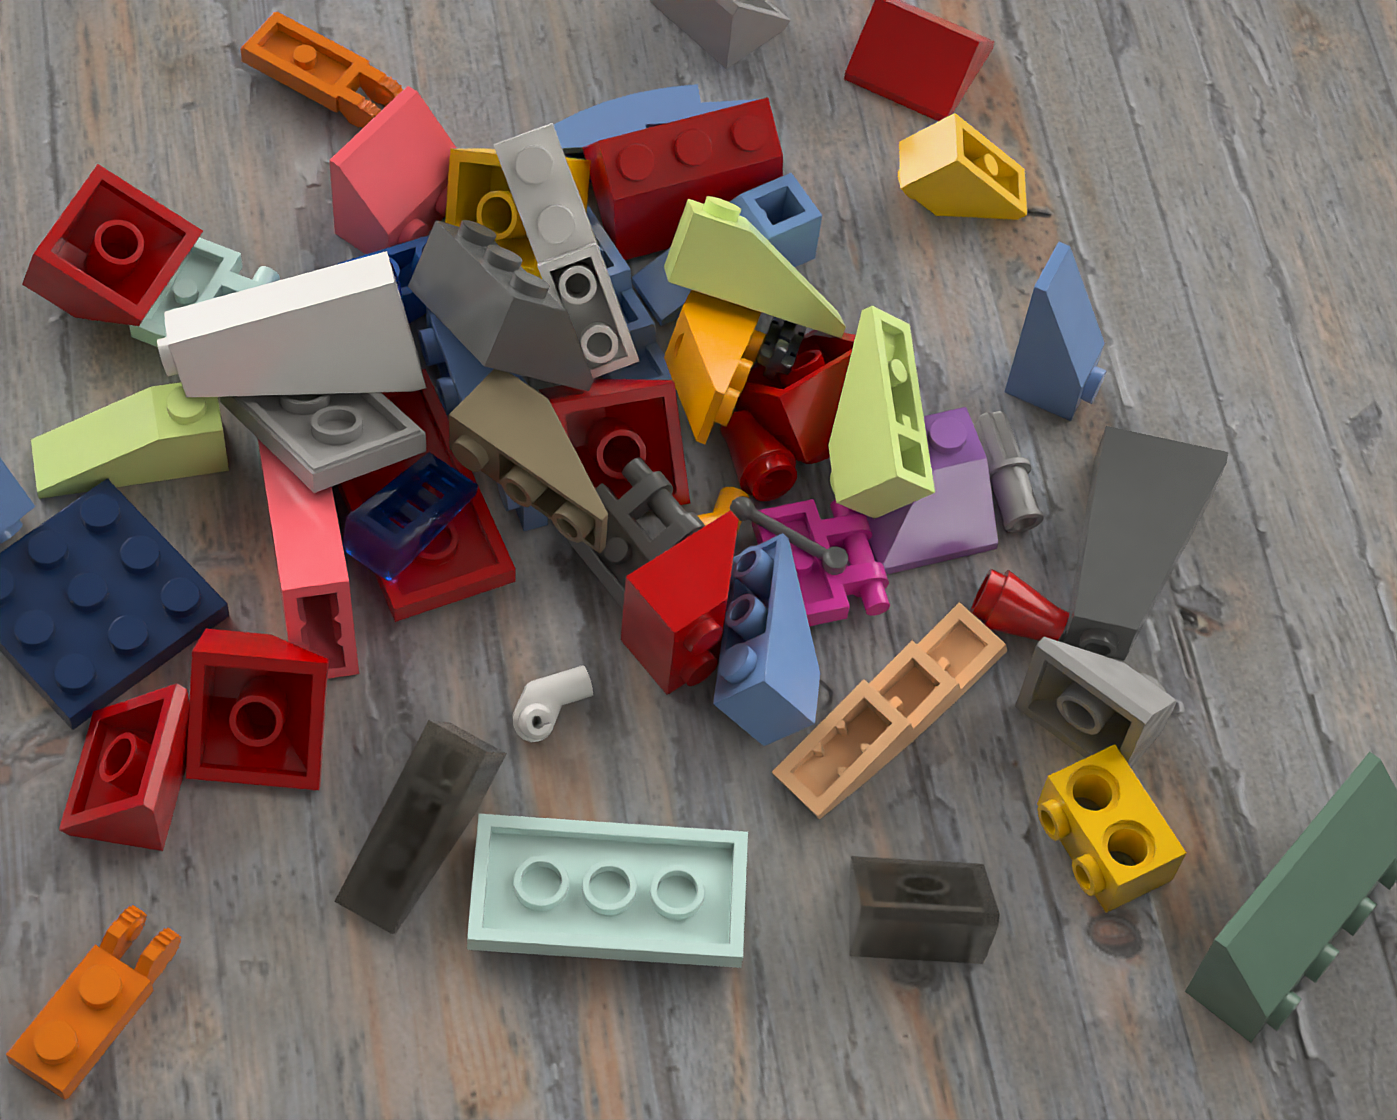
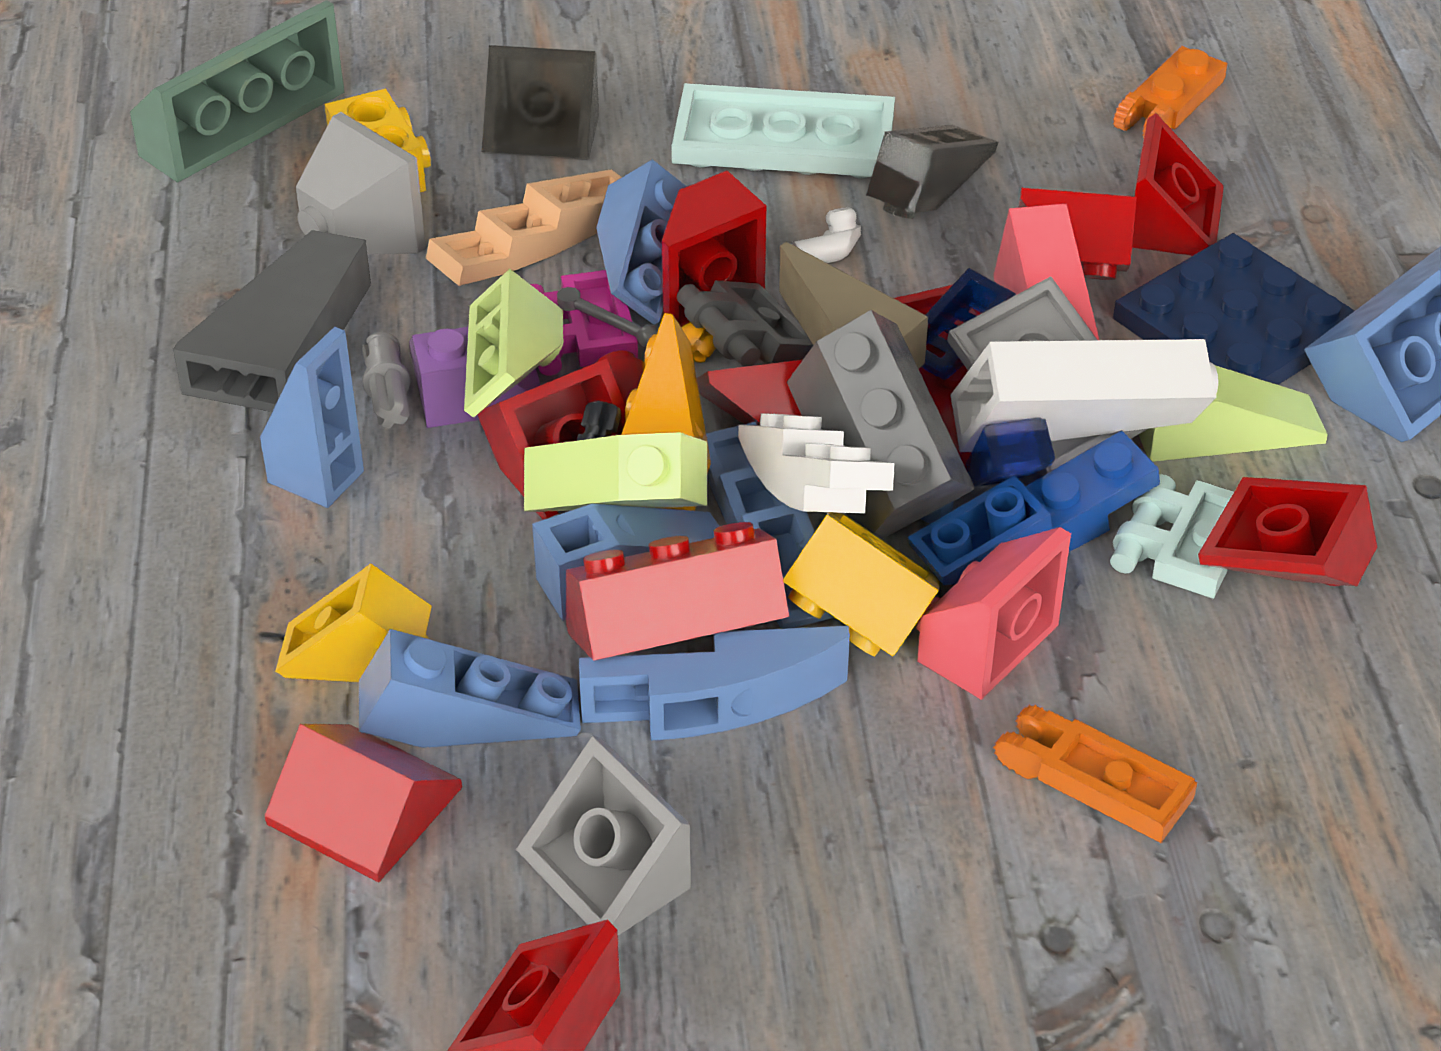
camera: 170 degrees left, 15 degrees down
(859, 117) = (455, 696): none -> medium blue slope
(1016, 608) = (413, 283): red cone -> none

